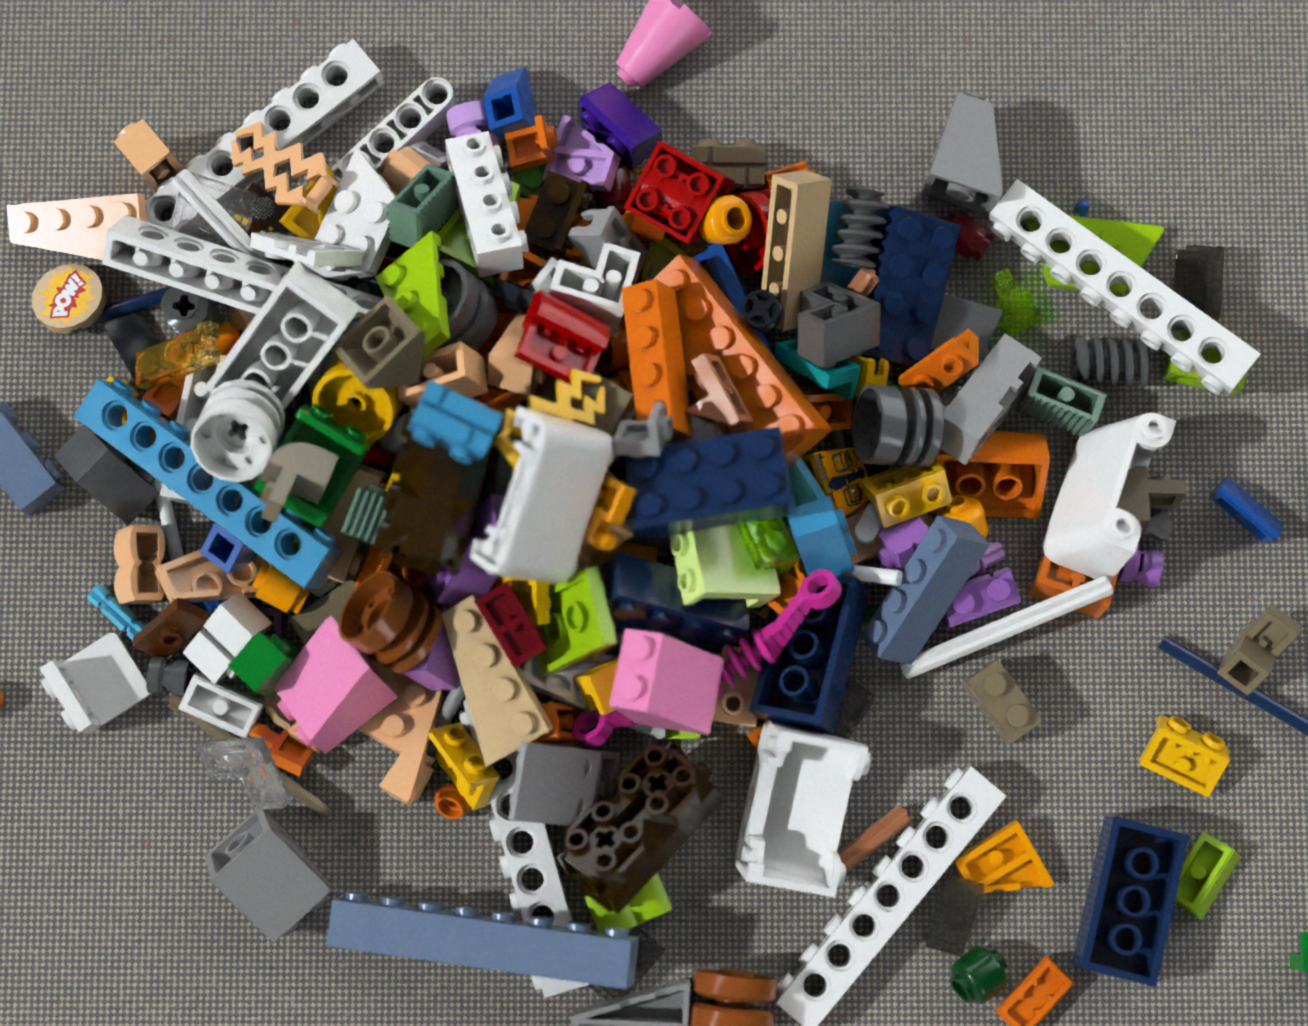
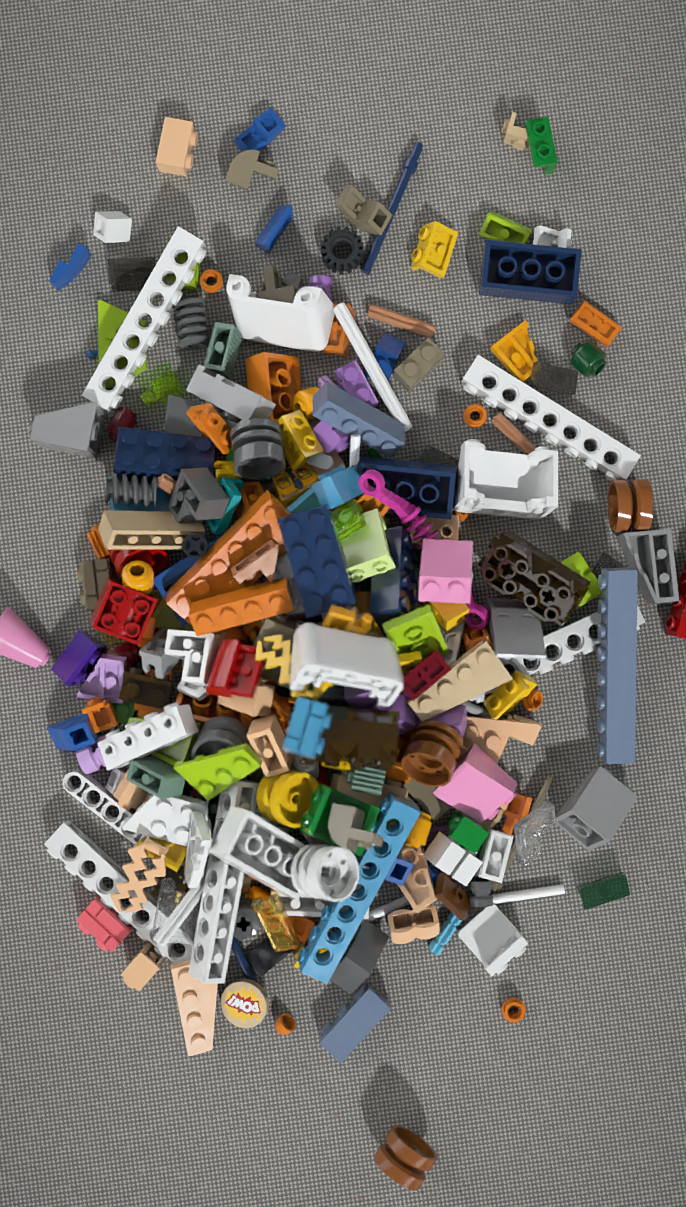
camera: 95 degrees left, 5 degrees up
(24, 361) = (289, 1026): none -> orange hinge
(139, 869) = (603, 890): none -> clear green slope
(154, 750) = (528, 894): none -> white bar
(219, 109) = (103, 925): none -> coral brick
(383, 347) = (258, 785): dark tan slope -> none
(514, 295) = (207, 707): black plate -> none
(644, 437) = (295, 606): light grey bracket -> none
(922, 776) = (475, 408): none -> orange plate
(1026, 657) = (387, 354): none -> blue slope
(1076, 687) = (401, 321): none -> nougat axle
(1181, 946) = (551, 237): none -> white bracket
(1184, 396) = (208, 274): none -> orange plate
(1210, 183) = (65, 273): none -> blue slope
(1215, 593) = (342, 236): none -> black tyre
(1276, 263) = (112, 226): none -> white panel

